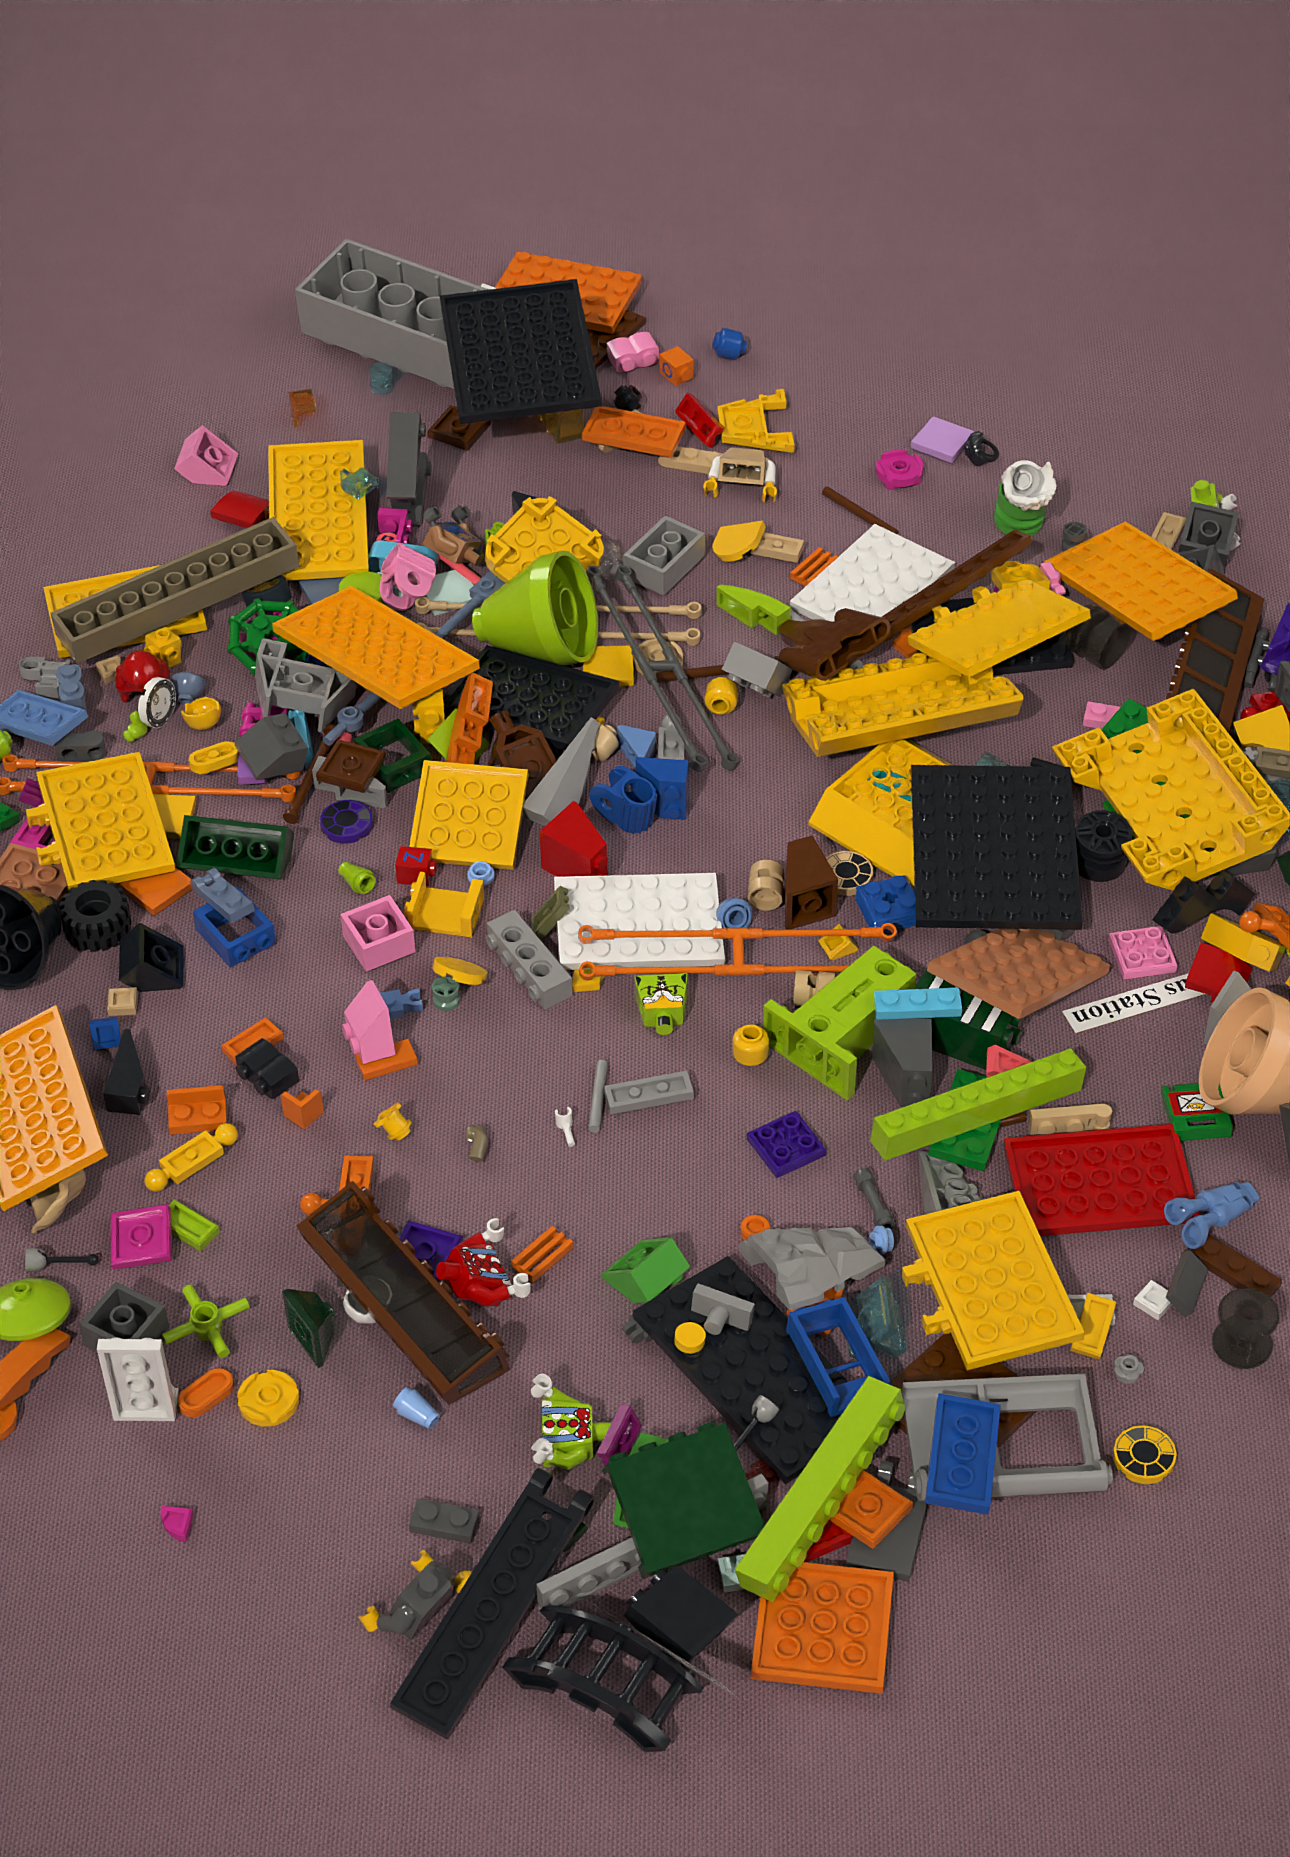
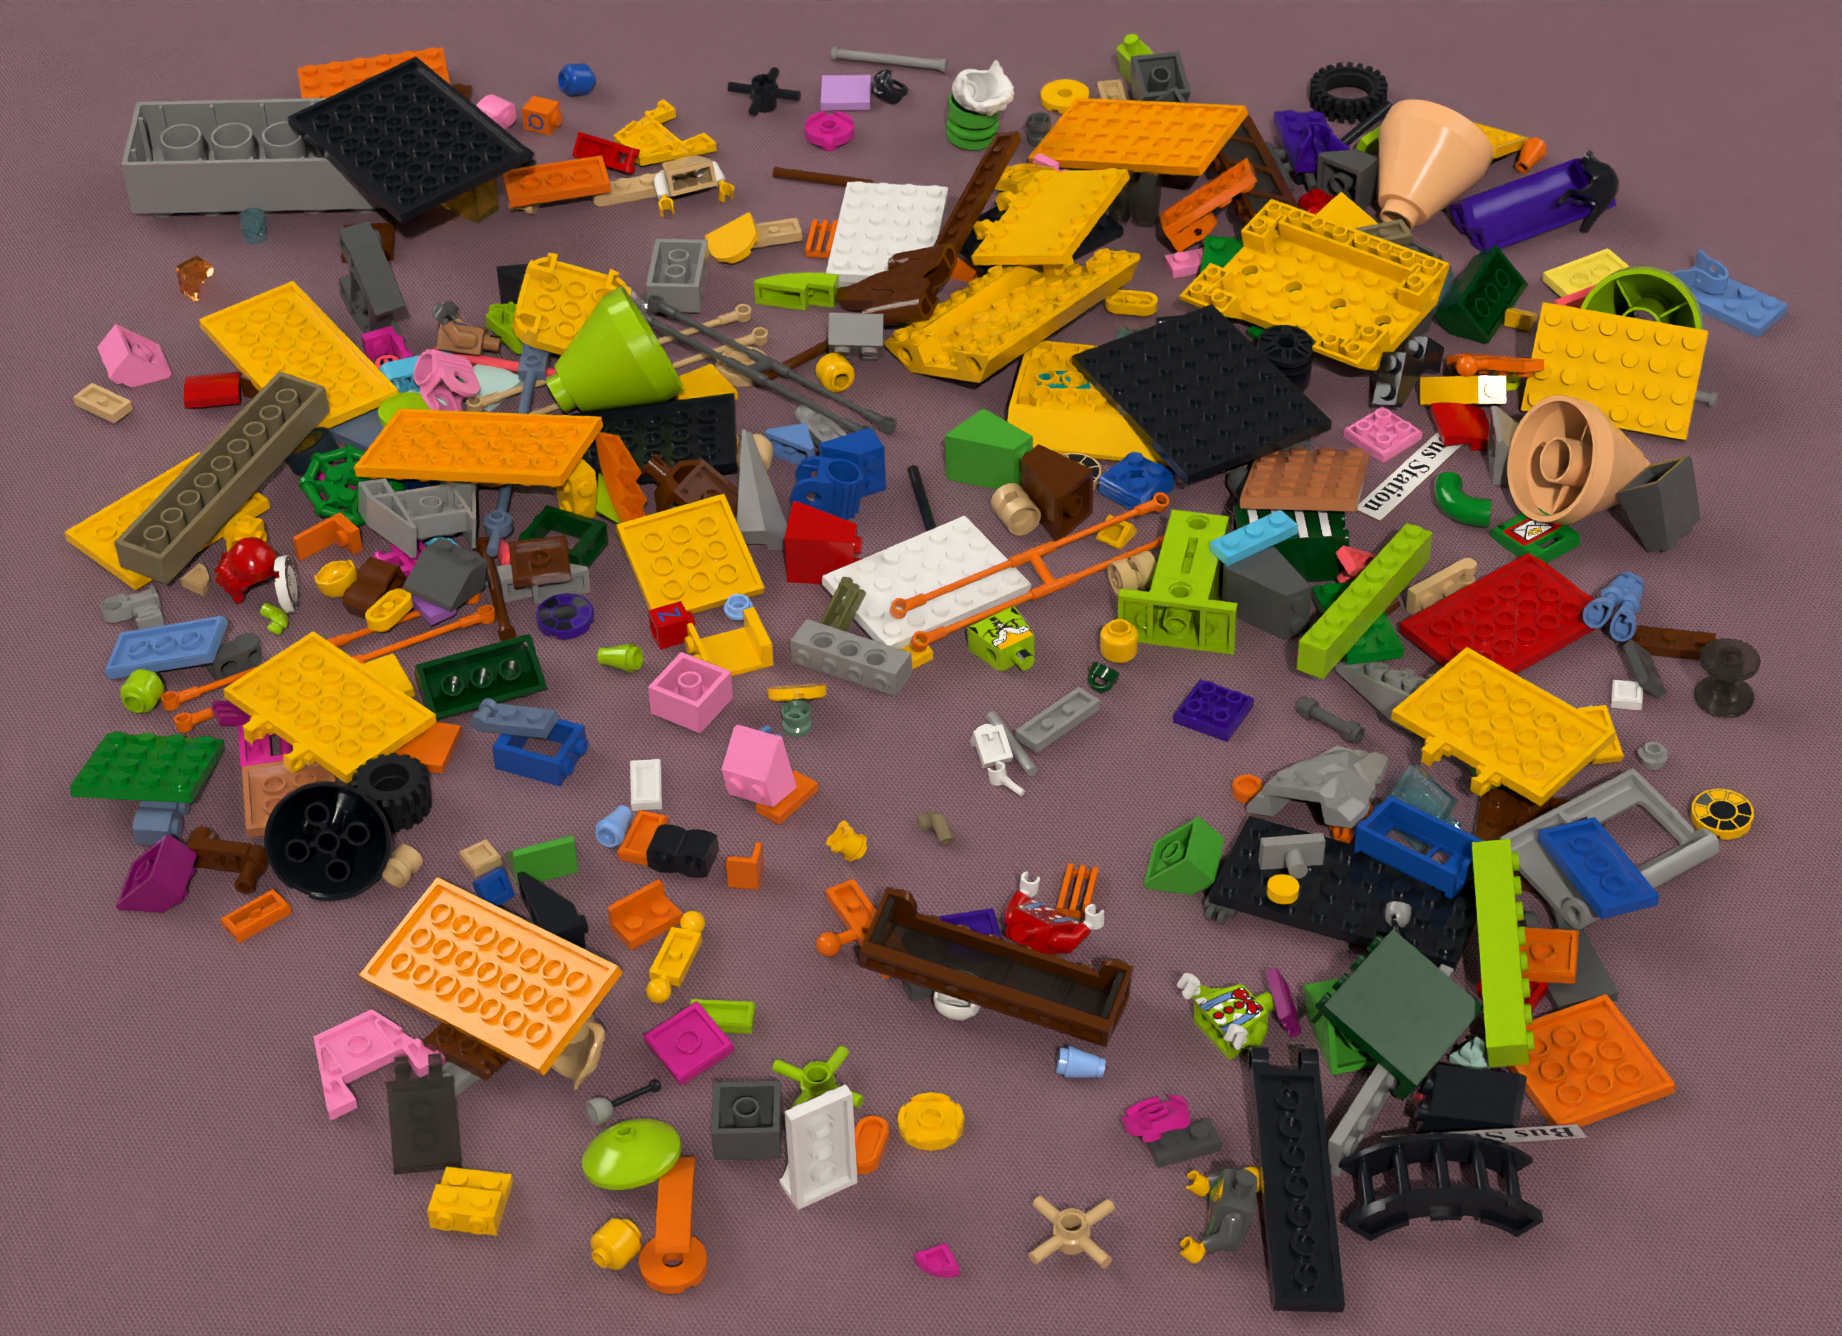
camera: 30 degrees left, 5 degrees down
(57, 981) = (403, 863): none -> tan wheel
(71, 686) = (178, 604): sand blue brick -> none
(150, 960) = (480, 809): black slope -> none
(156, 488) = (103, 403): none -> tan plate
(161, 1025) = (545, 859): none -> bright green slope
(188, 686) = (304, 559): sand blue brick -> none
(220, 728) = (372, 582): none -> reddish brown brick
(222, 671) = (325, 533): none -> orange bracket
(235, 1022) = (613, 827): none -> light blue cone
(290, 997) = (646, 784): none -> white tile
(293, 1562) = (1071, 1231): none -> tan bar
(310, 1322) = (923, 1041): clear green slope -> none
(358, 483) = (325, 317): clear light blue bracket -> none
(432, 1488) = (1152, 1118): none -> dark pink plate
(576, 1090) = (991, 744): none -> white bracket
(704, 840) = (921, 498): none -> black bar
(719, 1068) = (1105, 672): none -> dark green tile
(734, 913) = (1007, 541): medium blue brick -> none
(775, 818) = (986, 451): none -> bright green slope
(869, 414) = (764, 92): none -> black bar
(882, 1239) = (1366, 742): light blue plate -> none
(964, 400) = (941, 65): none -> light grey bar
(1022, 734) = (1131, 303): none -> yellow plate
(1132, 671) = (1195, 213): none -> orange plate
(1137, 510) = (1062, 93): none -> yellow tile
(1148, 1050) = (1459, 506): none -> green cylinder

